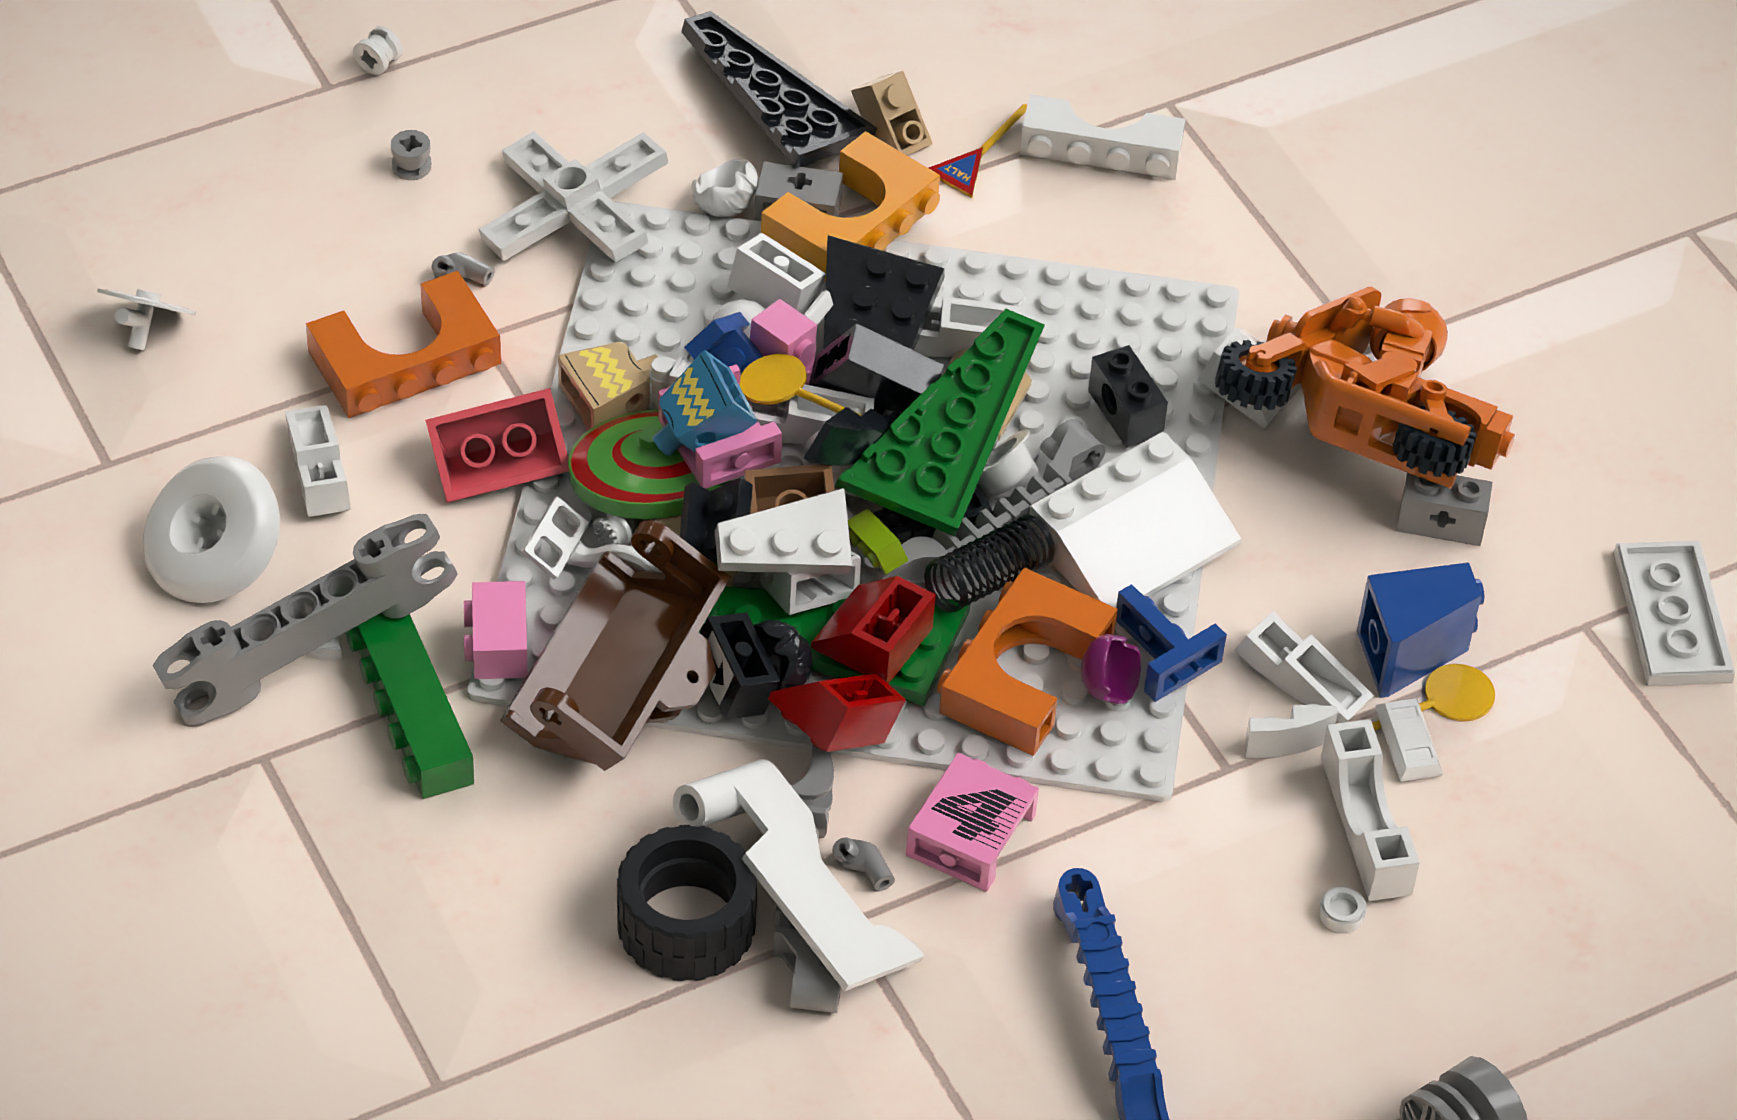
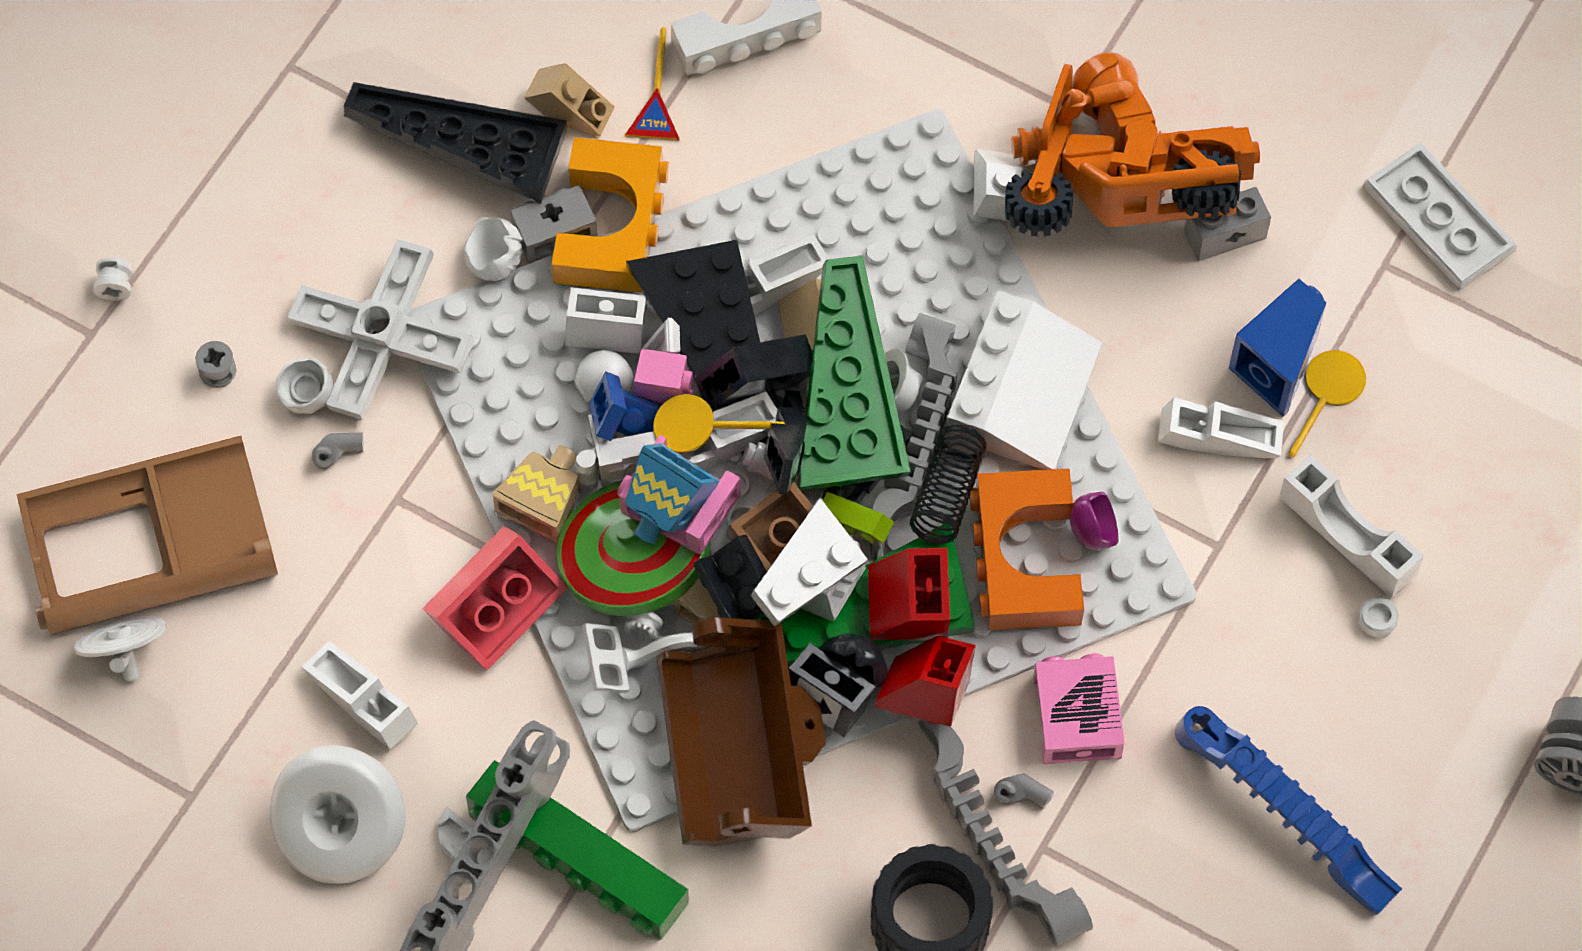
camera: 30 degrees left, 15 degrees up
(296, 269) = (202, 521): none -> medium nougat piece
(370, 379) = (344, 597): orange arch -> none
(471, 206) = (304, 385): none -> white hair
(498, 630) = (623, 766): bright pink brick -> none
(793, 873) = (991, 840): white door -> none
(1127, 396) = (940, 267): black brick -> none
(1175, 656) = (1114, 471): blue bracket -> none
(1283, 736) = (1253, 483): white slope -> none
(1408, 740) = (1330, 443): white tile -> none

